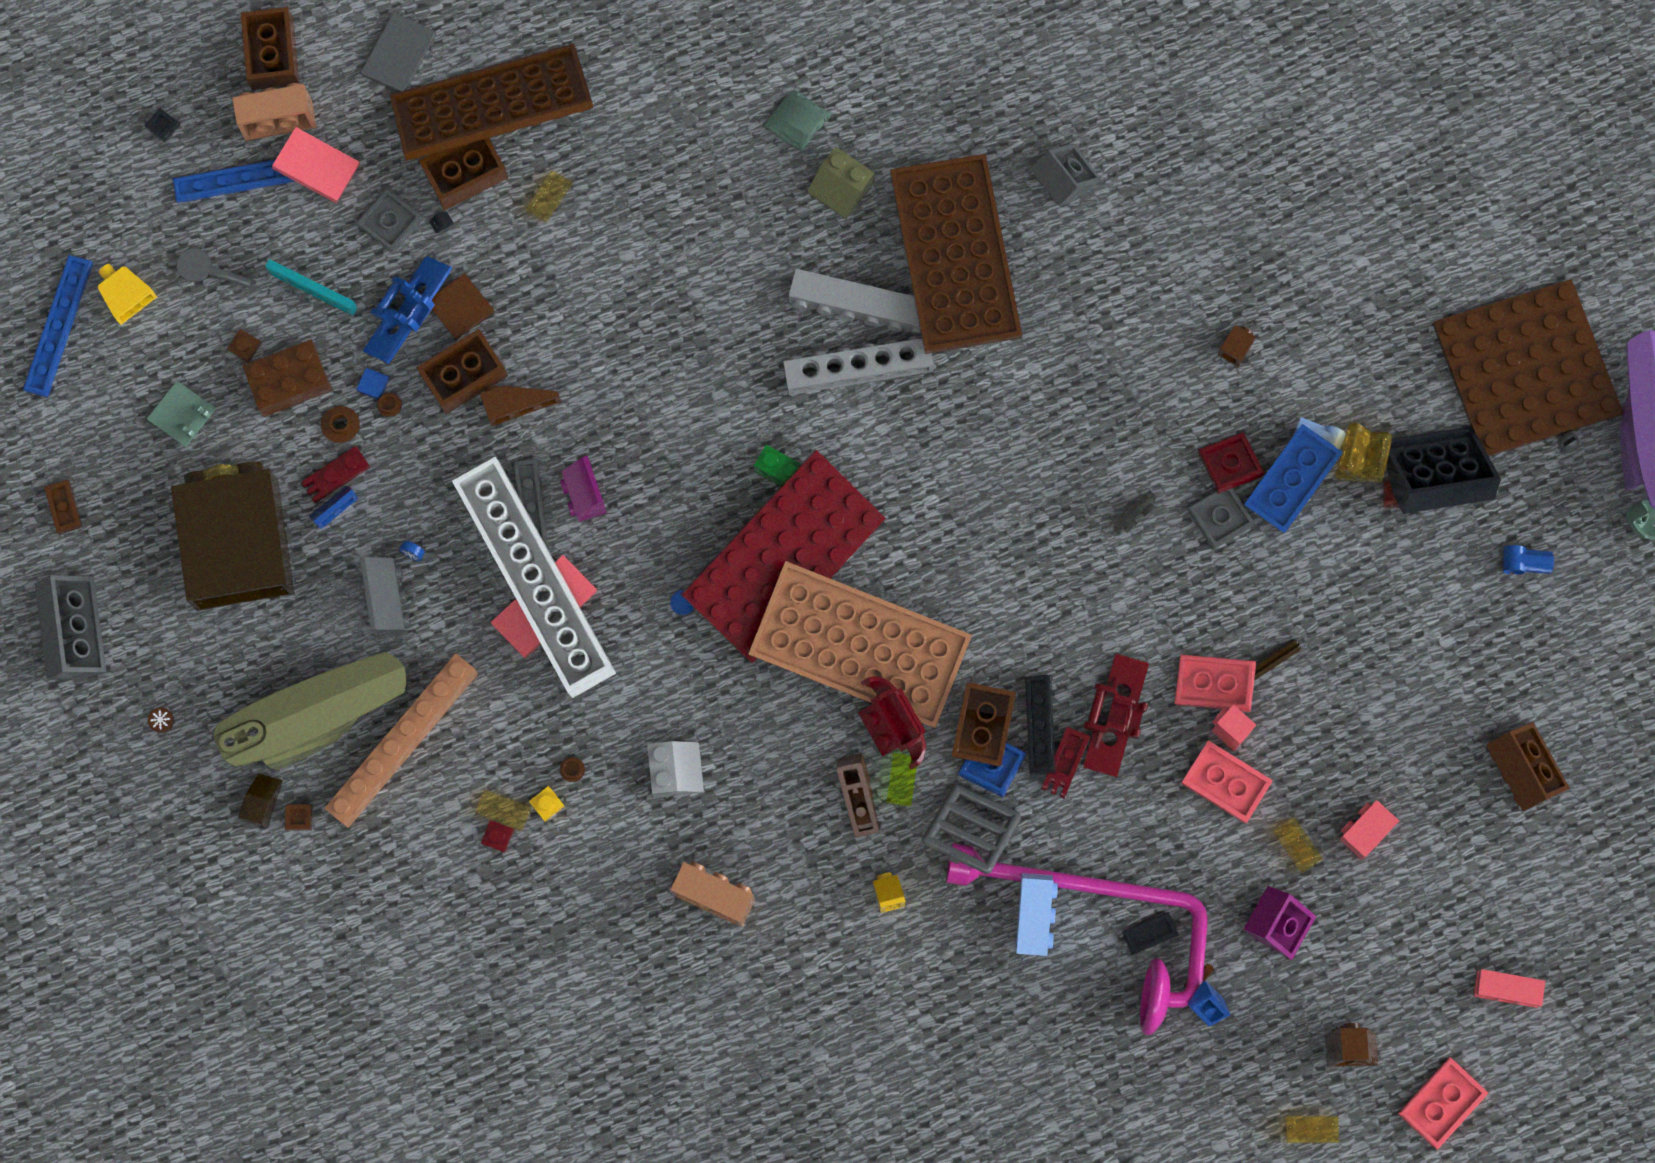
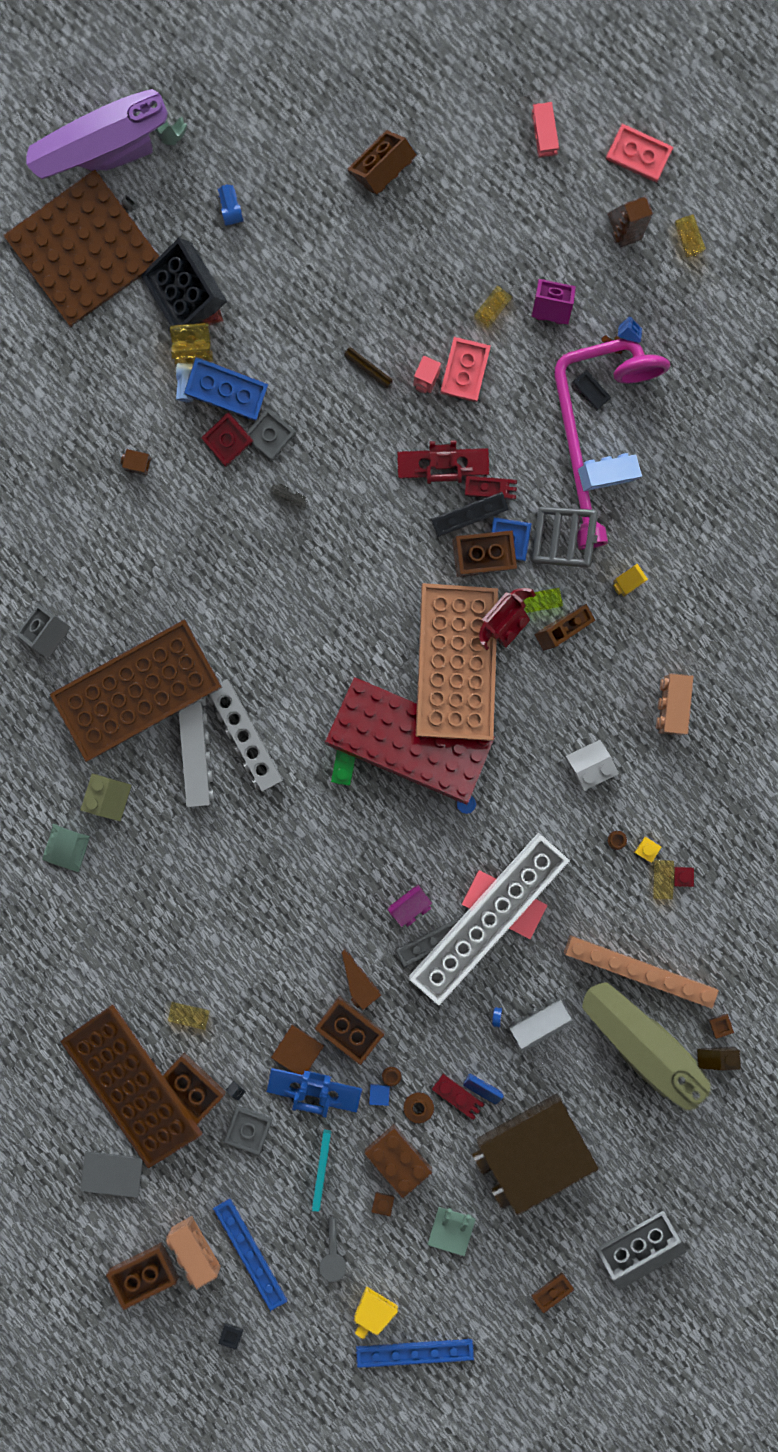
camera: 110 degrees left, 10 degrees up
(161, 720) = (684, 1155): reddish brown tile -> none
(220, 471) = (491, 1182): clear yellow tile -> none
(315, 165) = (224, 1204): coral tile -> none
(1215, 682) = (396, 399): coral tile -> none
(1368, 829) = (465, 259): coral brick -> none

